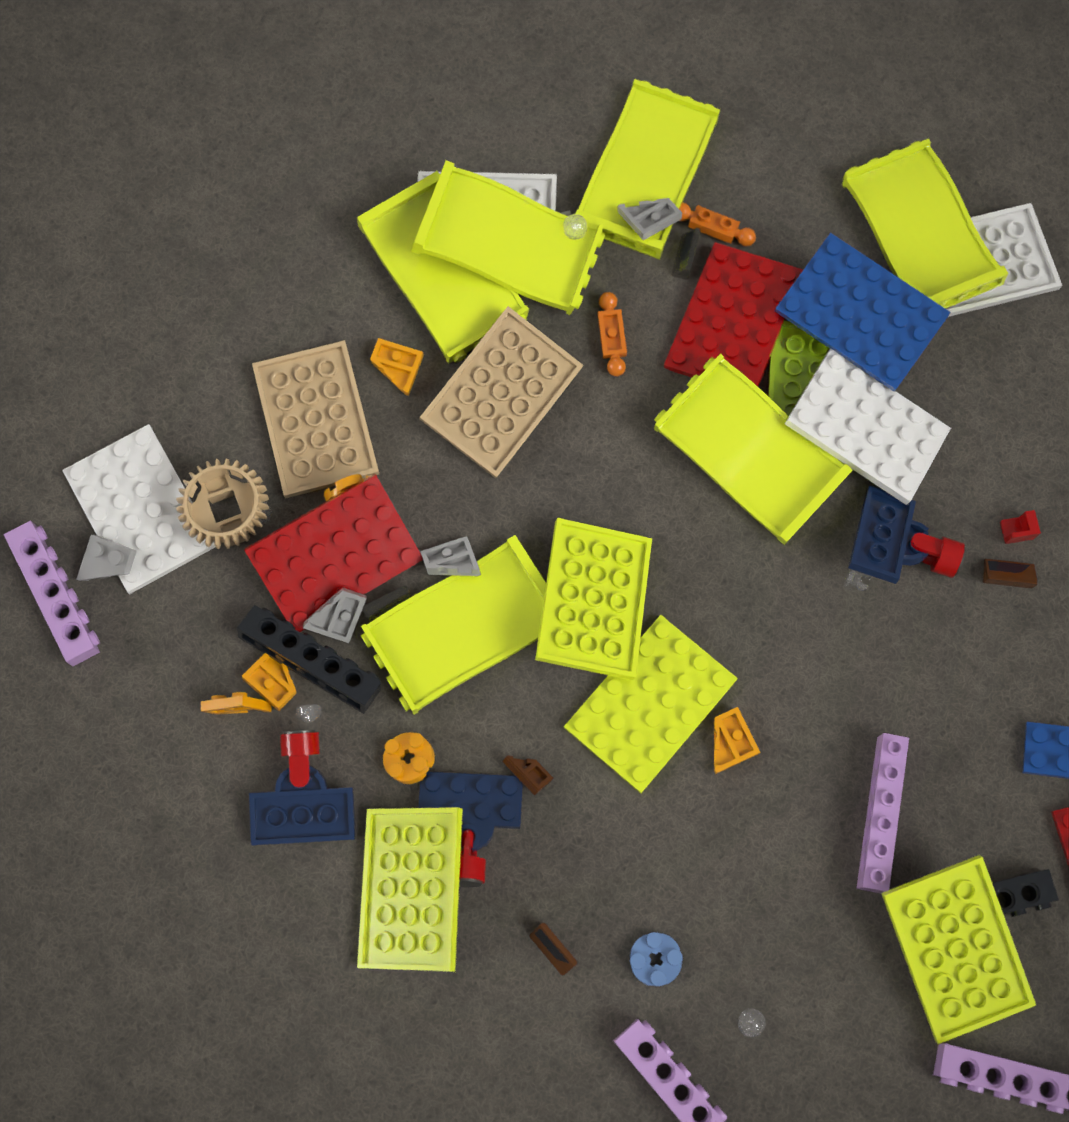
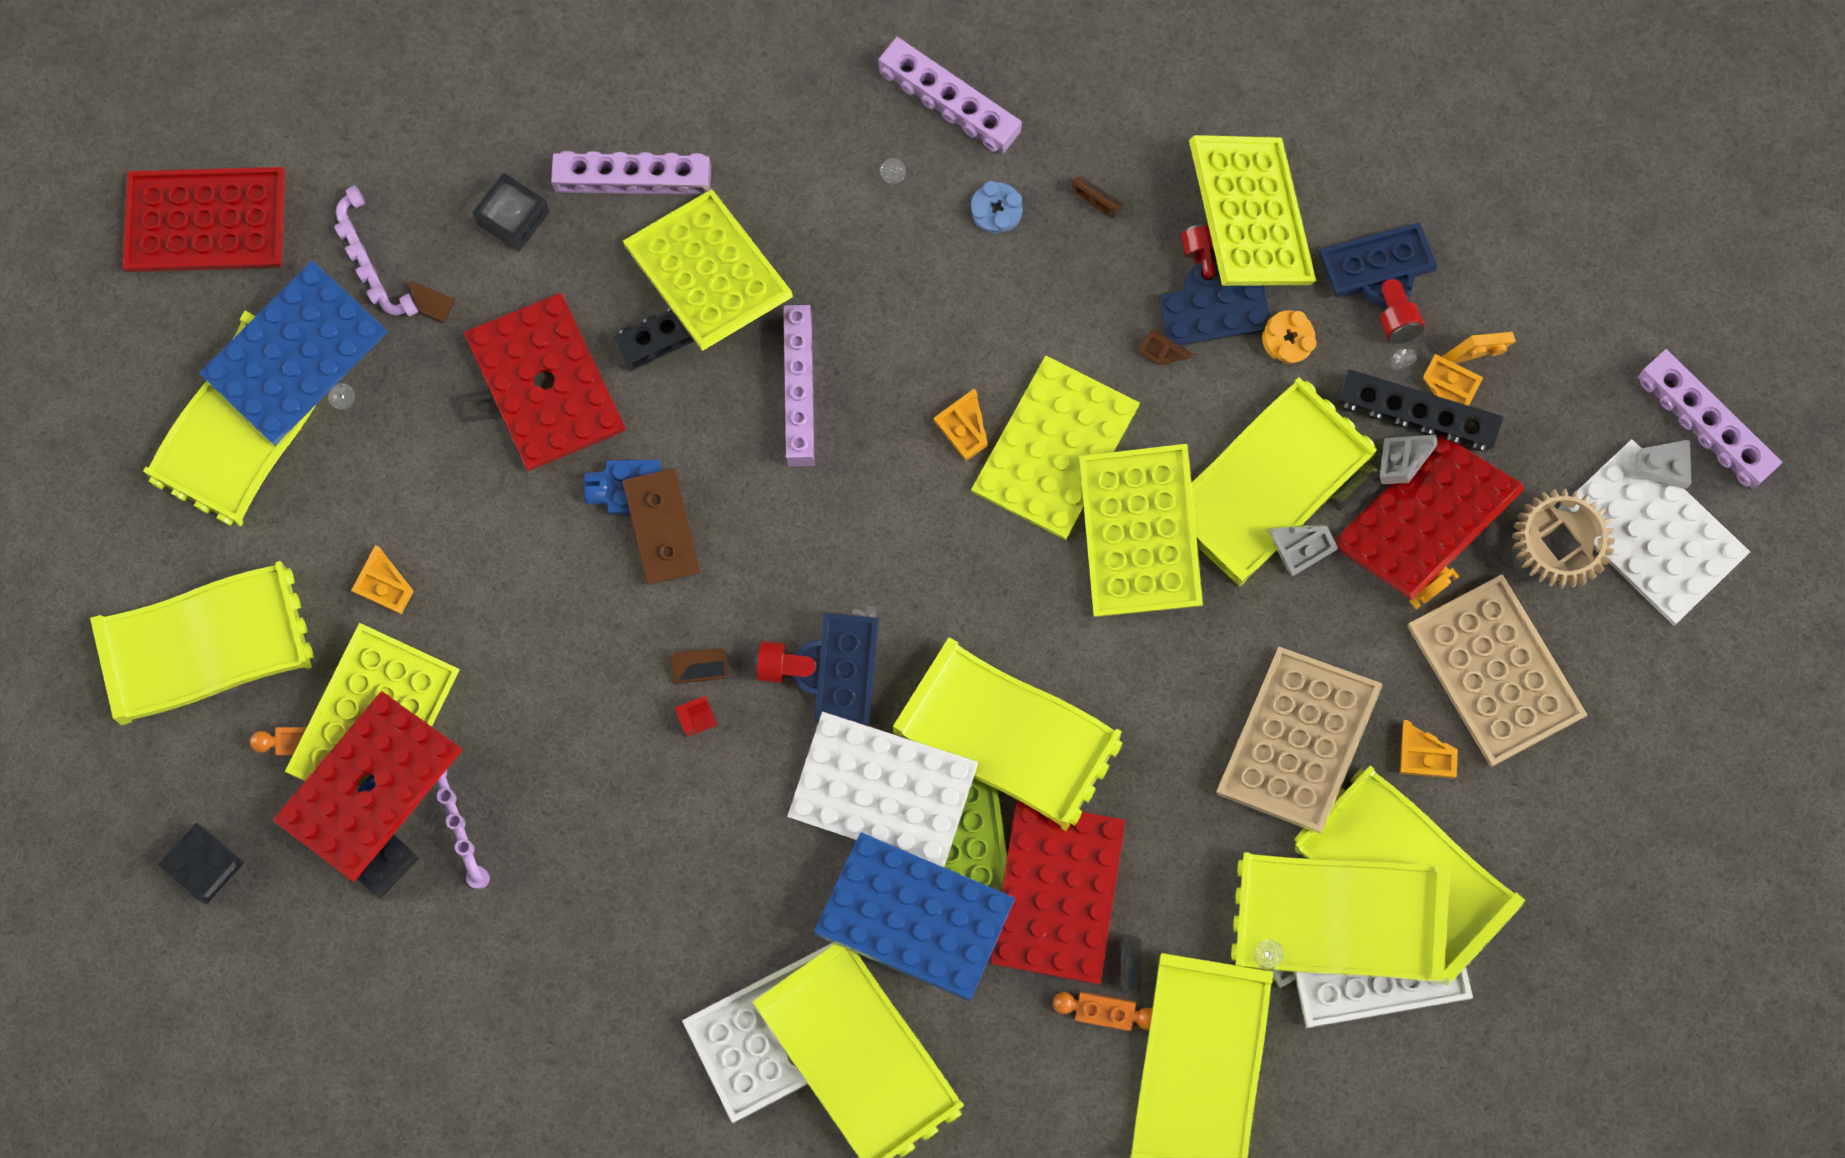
camera: 170 degrees right, 0 degrees up
(612, 334) = (1192, 844): orange plate -> none
(650, 216) = (1184, 987): light grey wing -> none
(1032, 704) = (661, 526): none -> reddish brown plate

